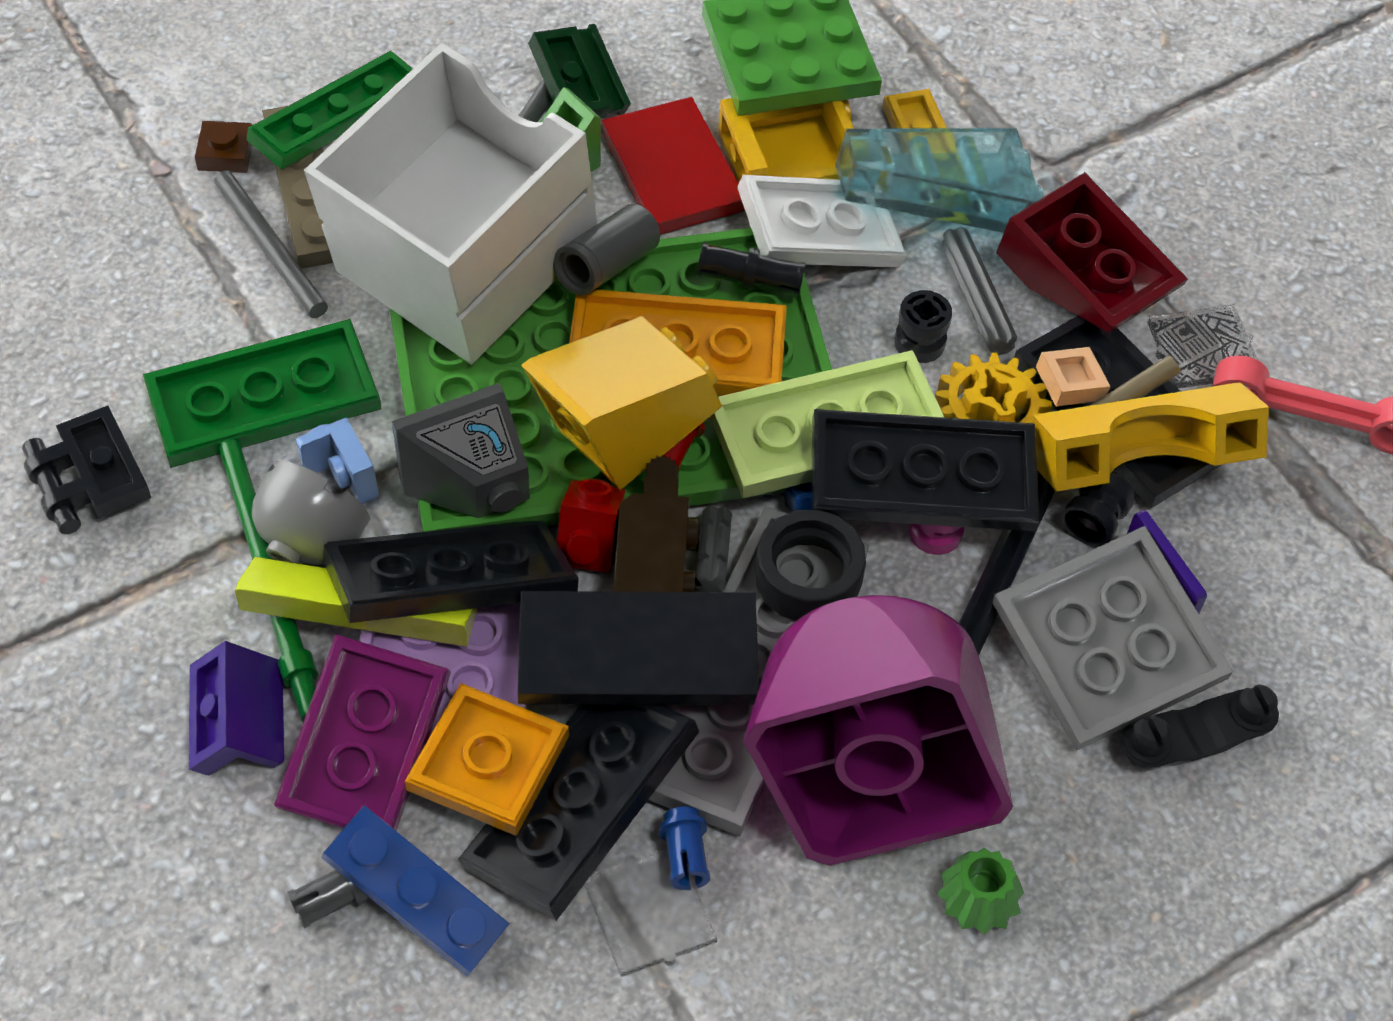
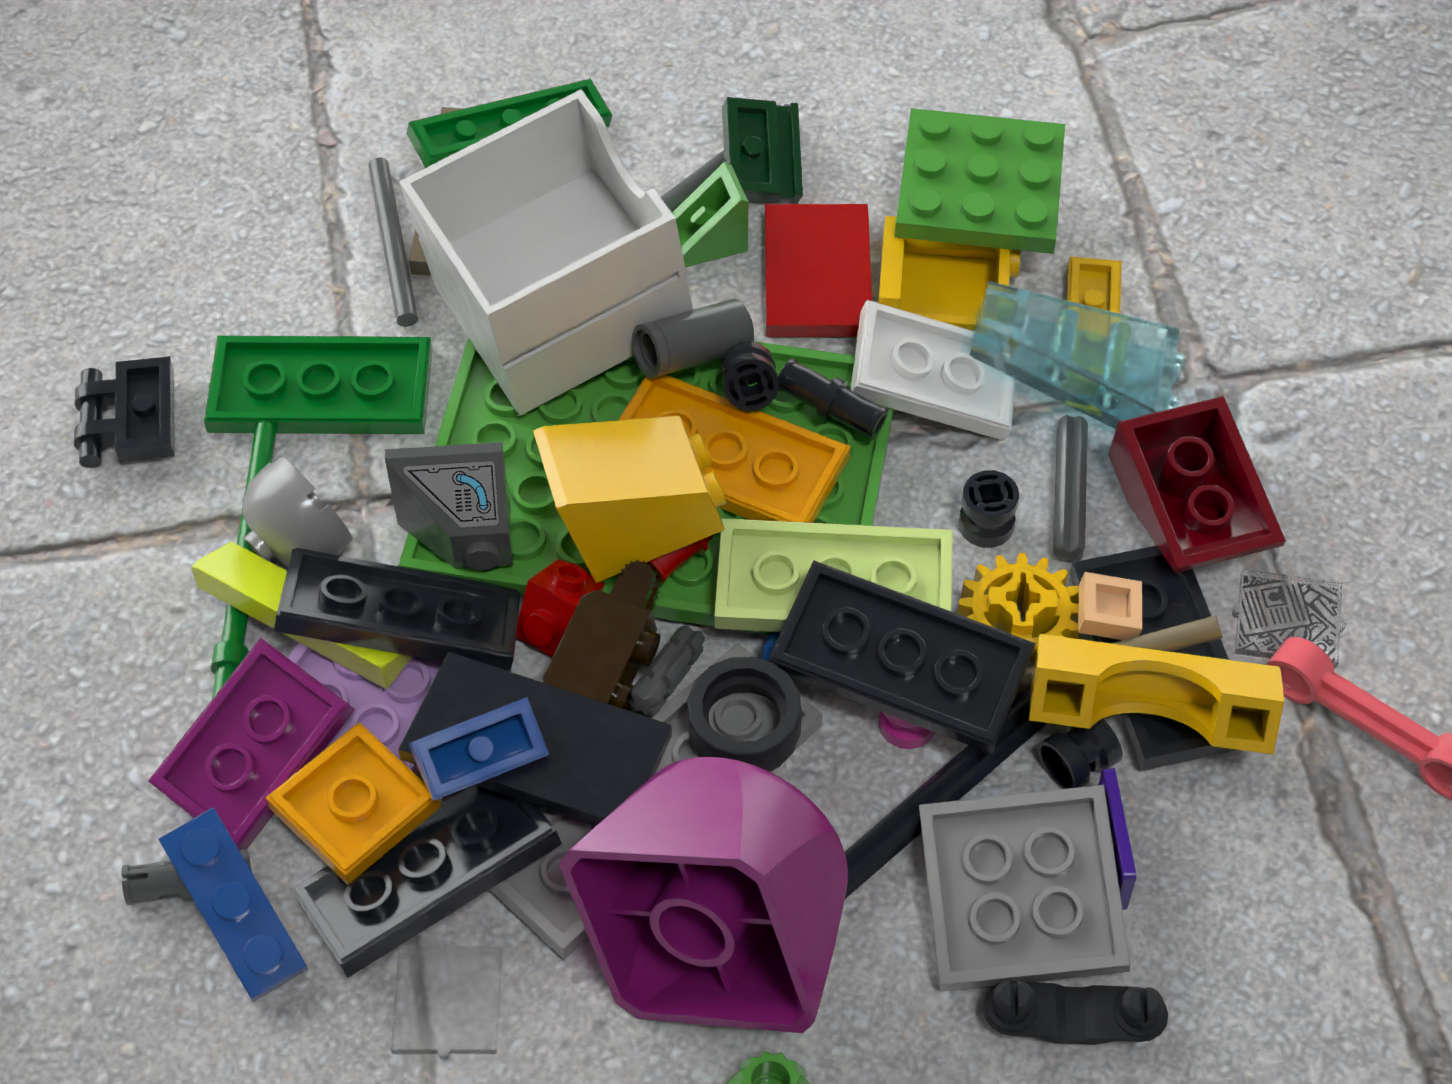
camera: 25 degrees right, 0 degrees up
(223, 147) = (387, 135): reddish brown plate -> none
(235, 709) = (158, 680): dark purple panel -> none
(340, 450) = (358, 464): light blue bracket -> none
(594, 668) = (478, 749): none -> blue slope
(664, 260) = (750, 364): none -> black wheel
(683, 832) = (506, 937): blue pin -> none

